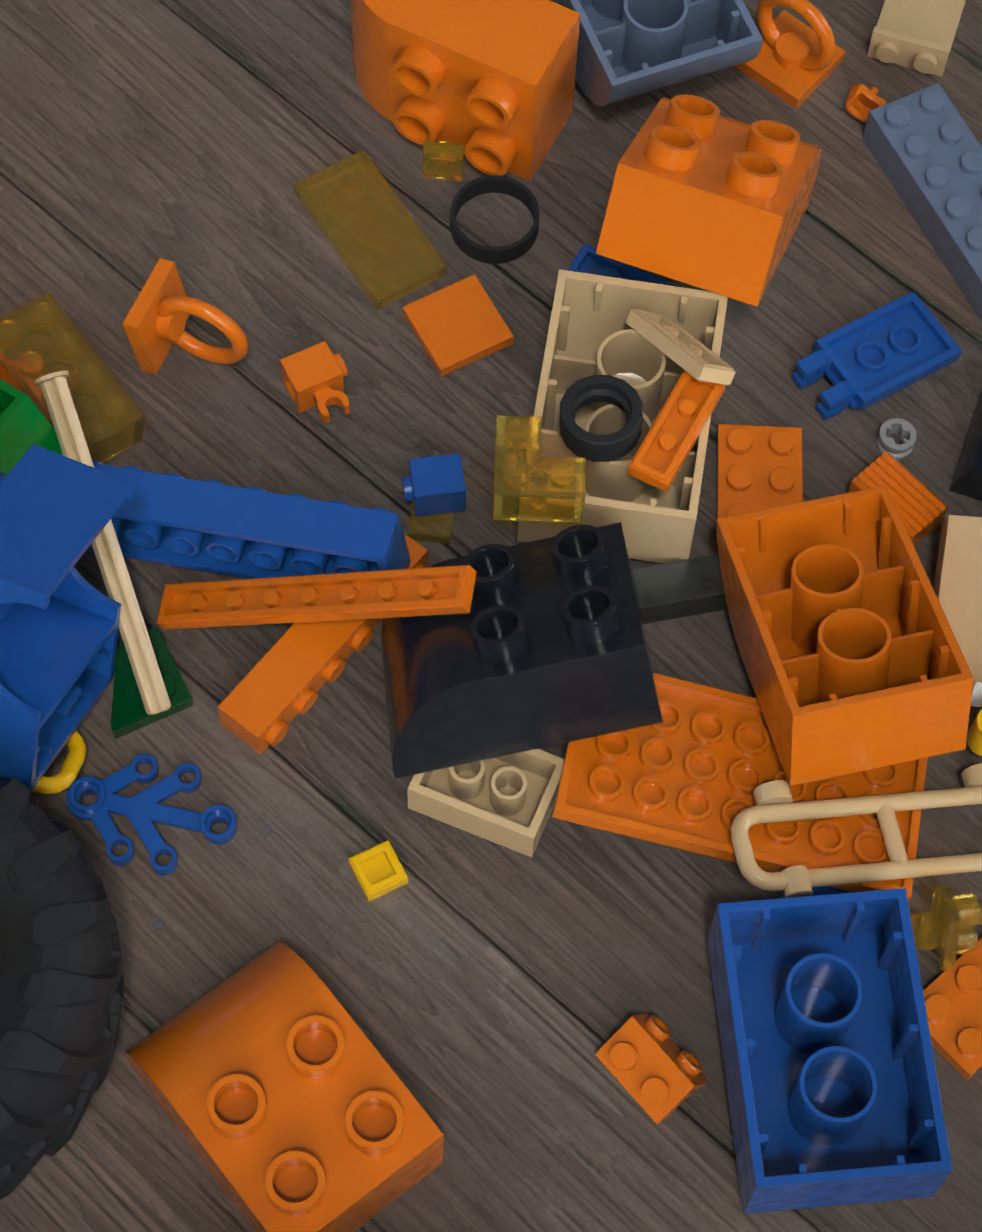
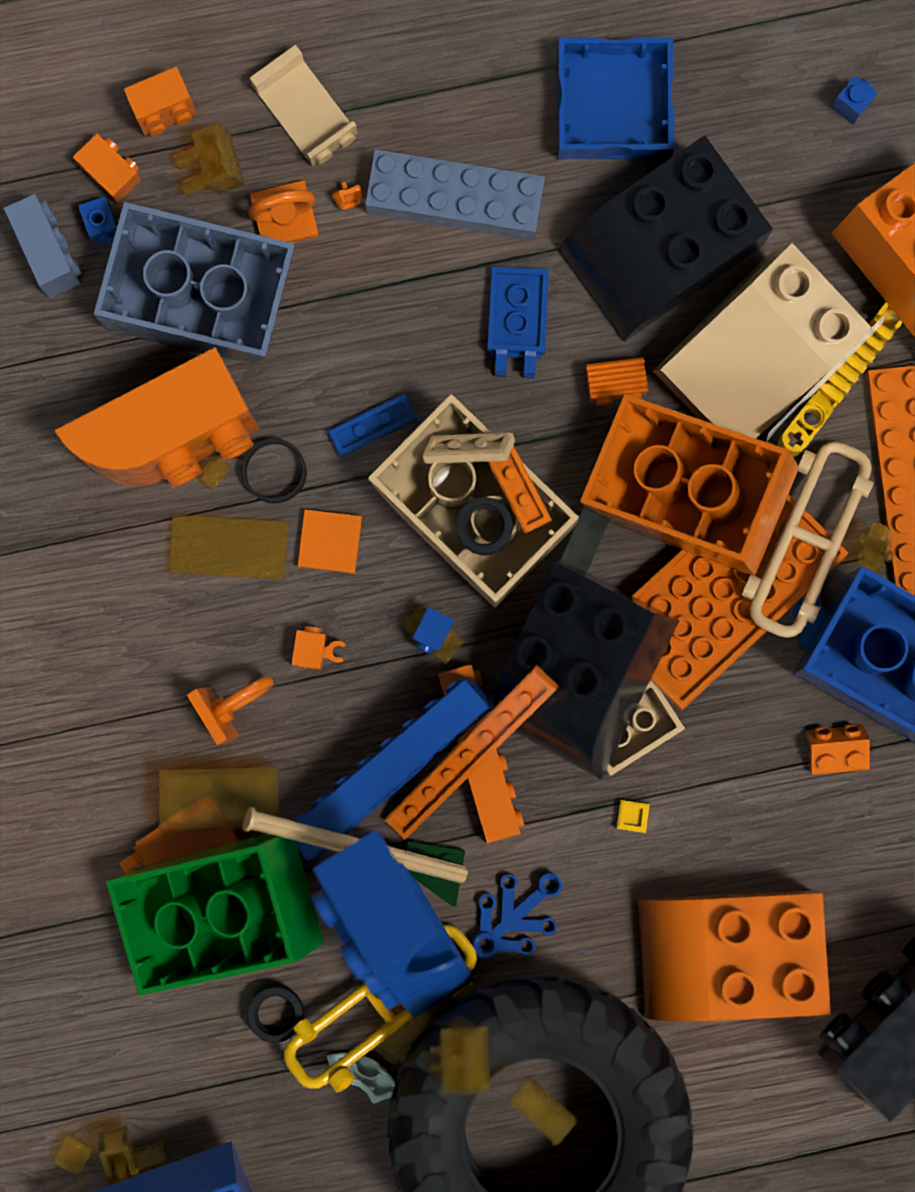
camera: 50 degrees left, 20 degrees up
(531, 484) = (498, 599): clear yellow brick -> none
(709, 198) = (379, 354): orange brick -> none
(757, 468) = (552, 446): orange plate -> none
(906, 433) = (573, 339): light grey bush -> none

